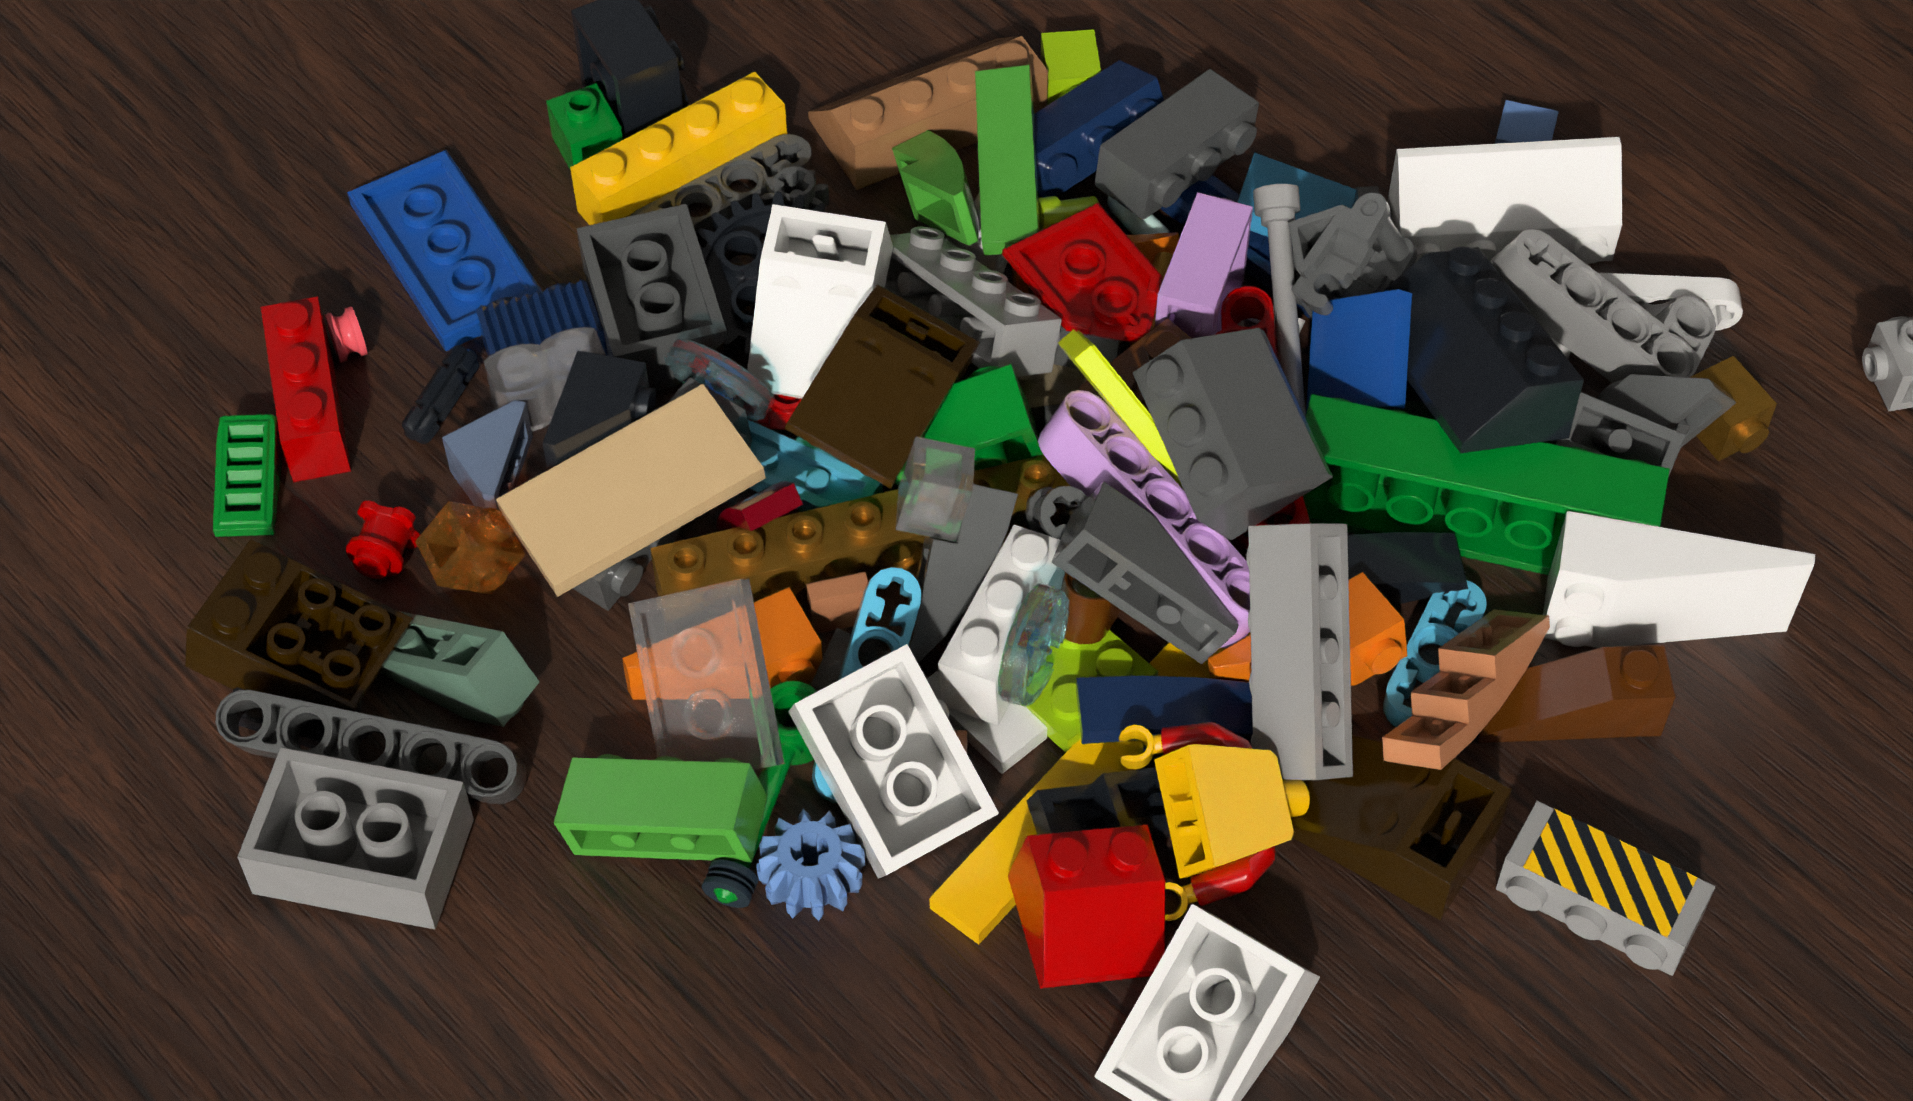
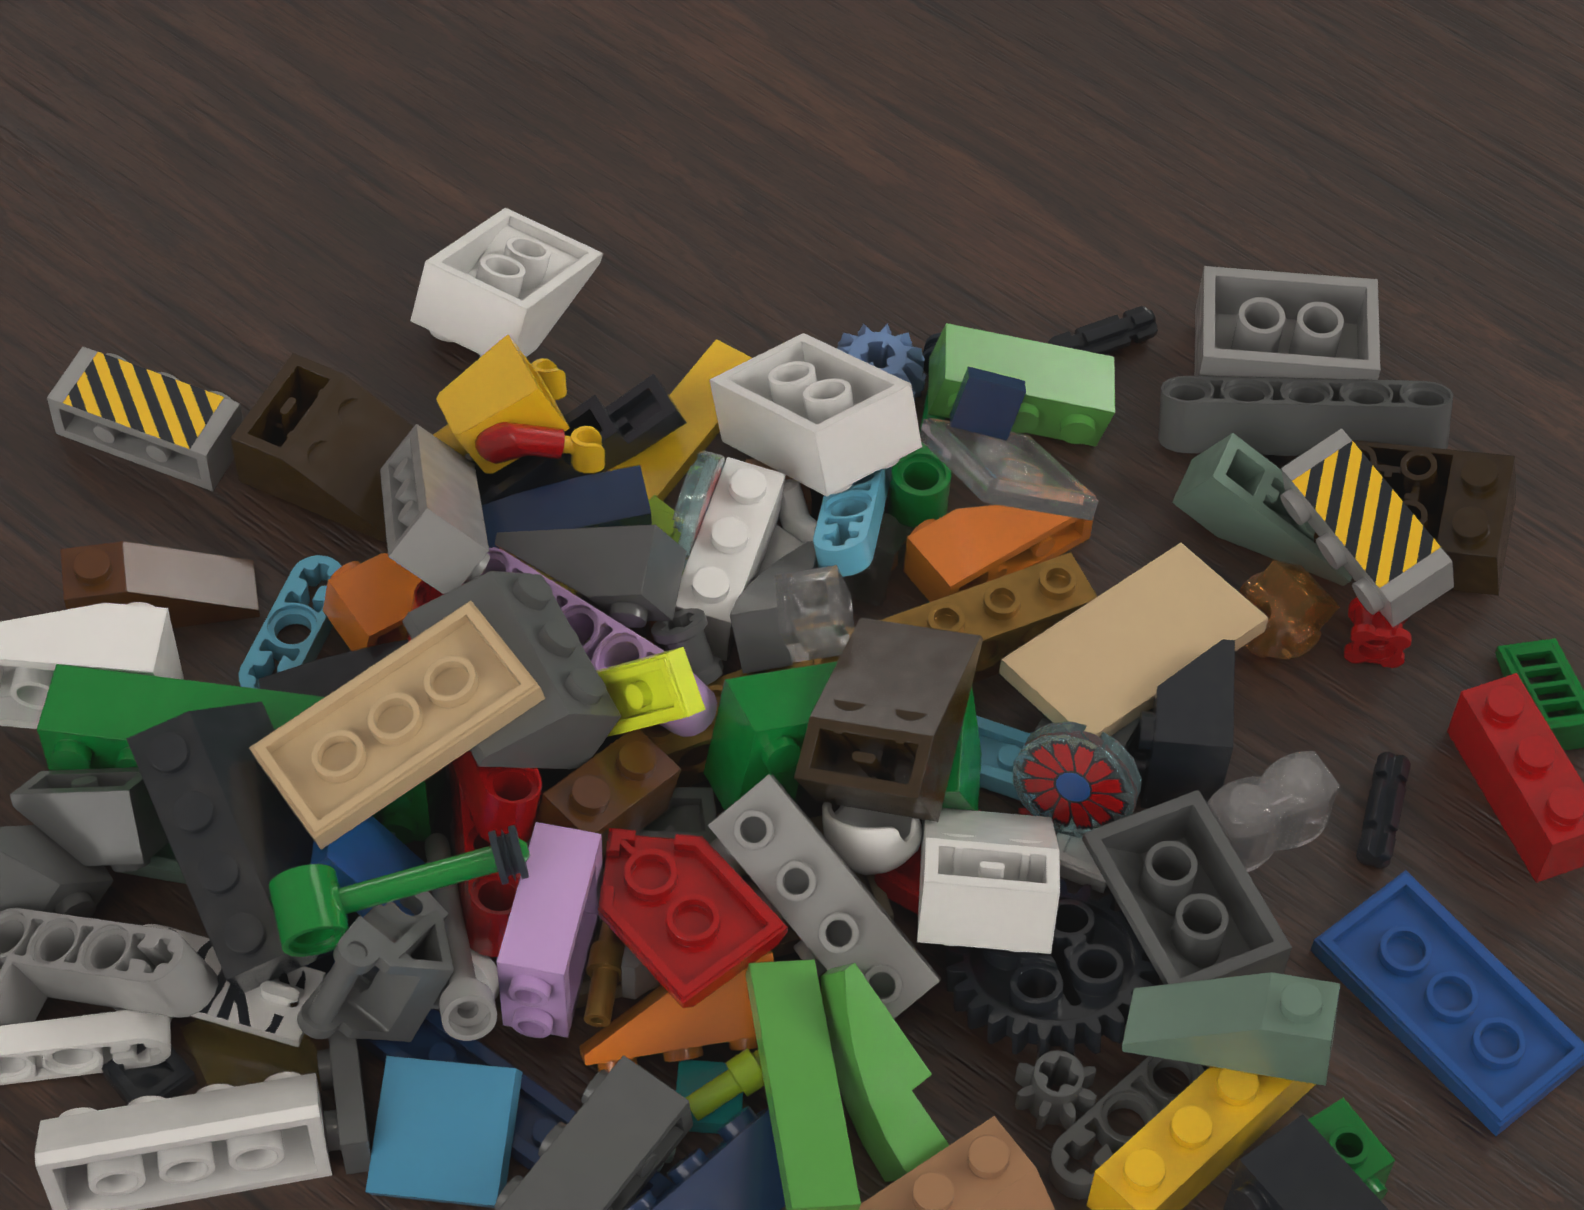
camera: 170 degrees right, 0 degrees up
(345, 334) = (1513, 857): coral bush -> none
(370, 565) = (1366, 529): none -> brick
(490, 453) = (1303, 711): sand blue slope -> none
(538, 316) = (1309, 871): dark blue brick -> none
(549, 898) = (1111, 333): none -> black axle
(644, 153) = (1239, 1023): none -> sand green slope
(707, 745) = (987, 403): none -> dark blue tile
(761, 507) = (1002, 634): dark red slope -> none
(835, 601) = (899, 598): nougat tile -> none
(1091, 904) = (621, 350): red slope -> none
(1336, 367) = (396, 724): none -> tan tile
(1403, 253) = (314, 908): none -> green piece
(1472, 685) = (263, 559): nougat slope -> none

